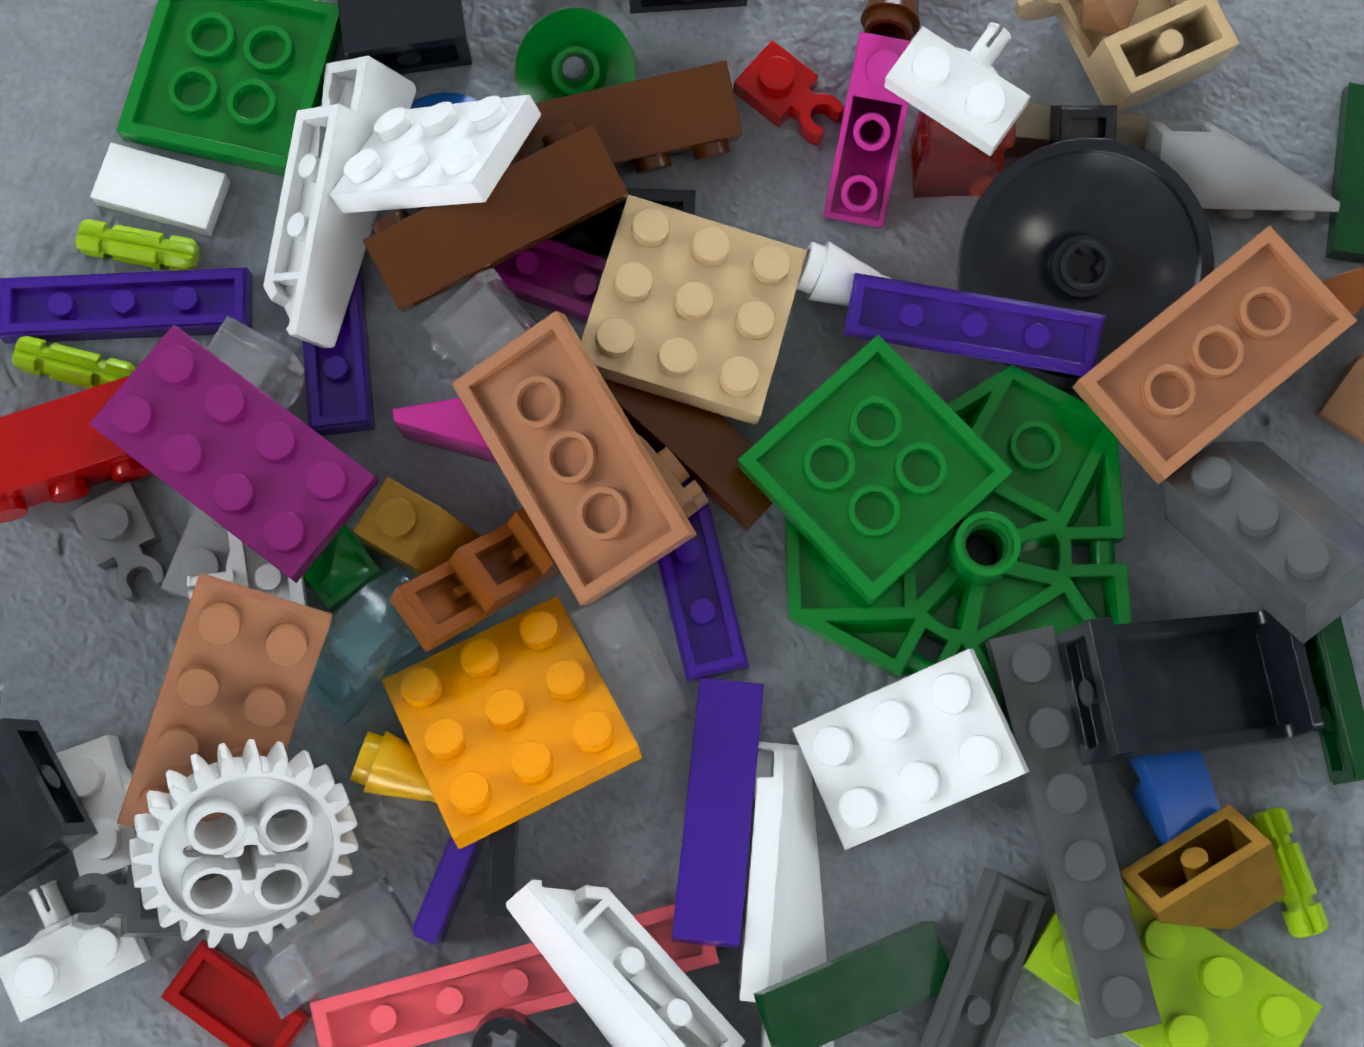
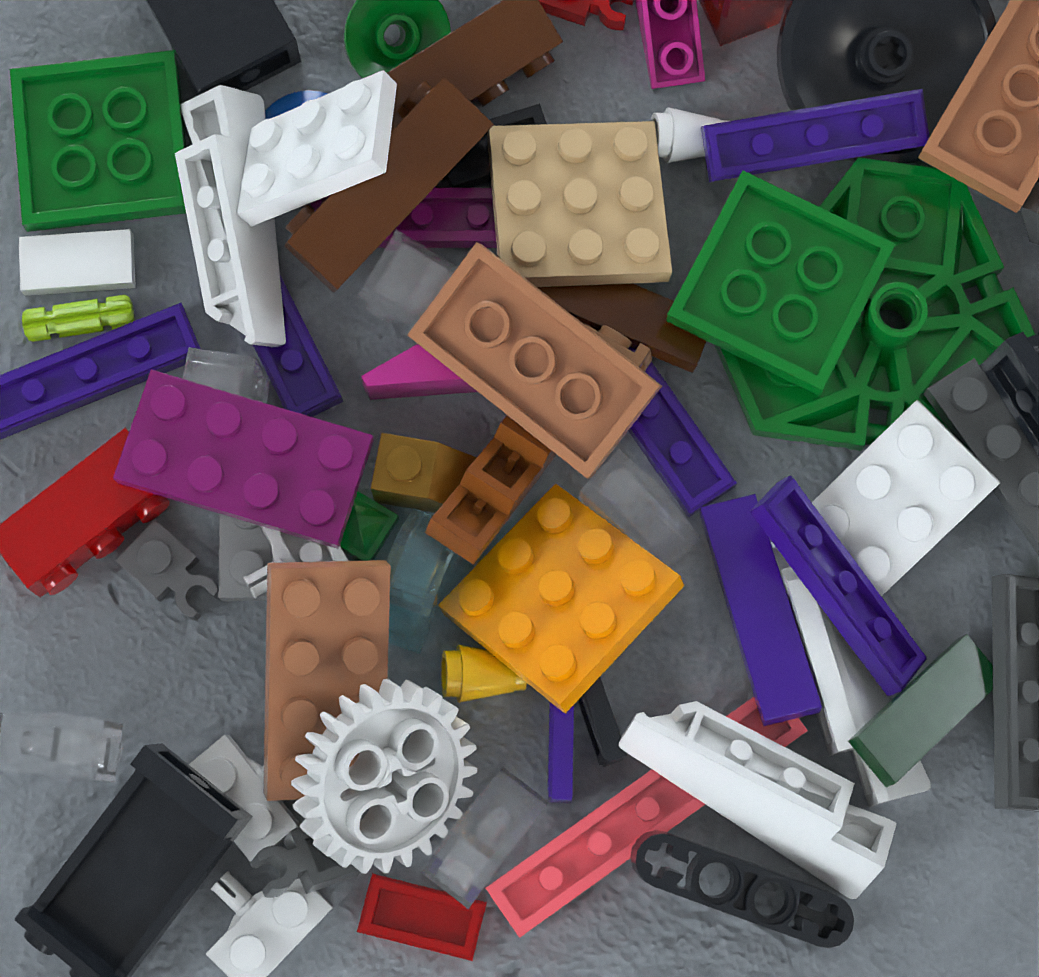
camera: 20 degrees left, 0 degrees up
(67, 363) = (61, 438): lime axle -> none
(811, 819) = (839, 585): none -> dark purple tile

